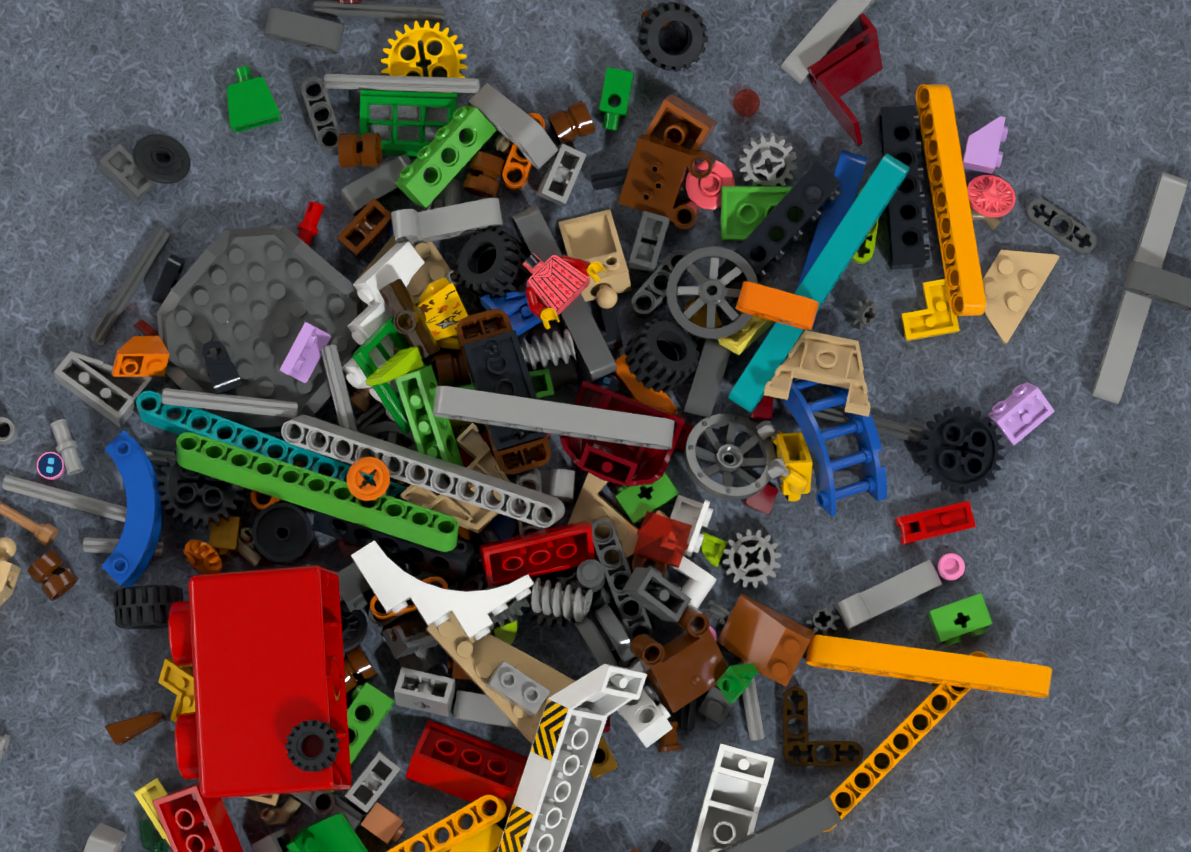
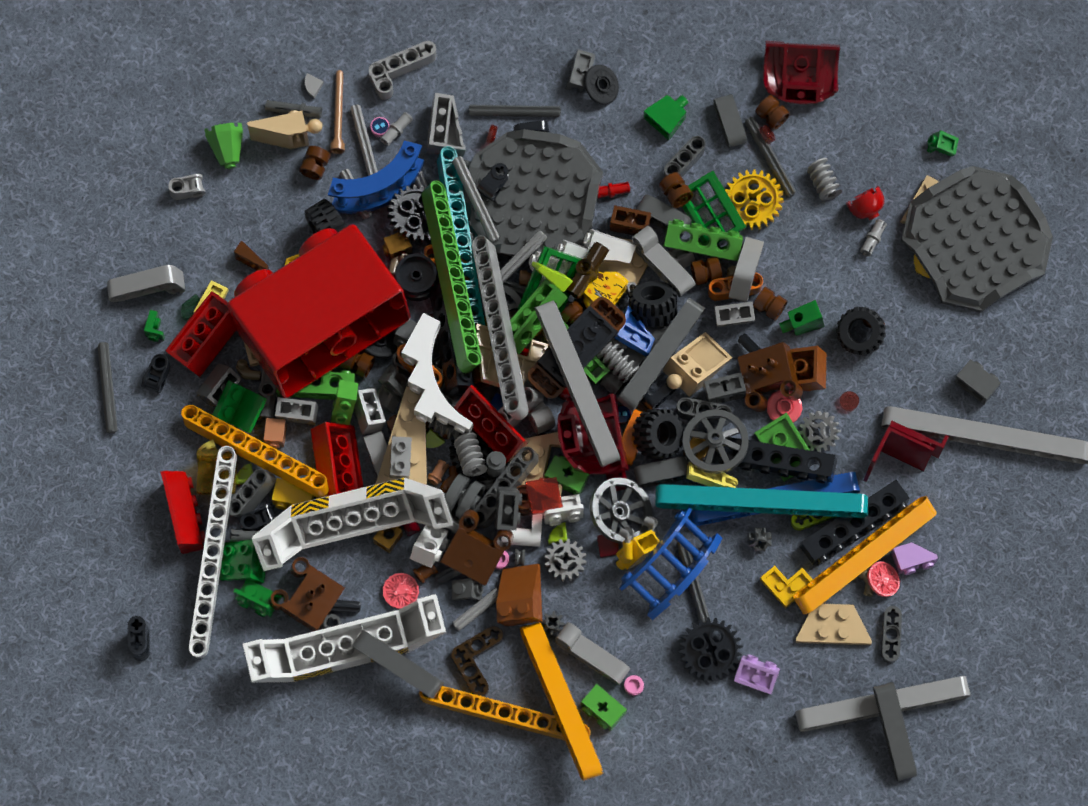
camera: 60 degrees right, 10 degrees down
(141, 357) = (473, 136): orange slope -> none
(196, 551) = (376, 238): orange gear -> none
(296, 752) = (300, 351): black tyre -> none
(305, 352) = (530, 222): lavender bracket -> none
(356, 481) = (470, 291): orange gear -> none
(399, 716) = (344, 402): none -> bright green brick
(401, 83) = (732, 191): light grey axle -> none
(550, 650) = (438, 472): none -> nougat pin
(557, 284) = (661, 342): torso -> none
(571, 640) = (447, 483): none -> reddish brown arm
(674, 780) = (400, 590): none -> coral wheel
(736, 680) = (484, 588): green bracket -> none
(763, 410) = (664, 515): dark red slope -> none
(777, 305) = (729, 480): orange beam -> none
(824, 361) = (713, 529): tan wing -> none
(936, 522) = (656, 660): red plate -> none

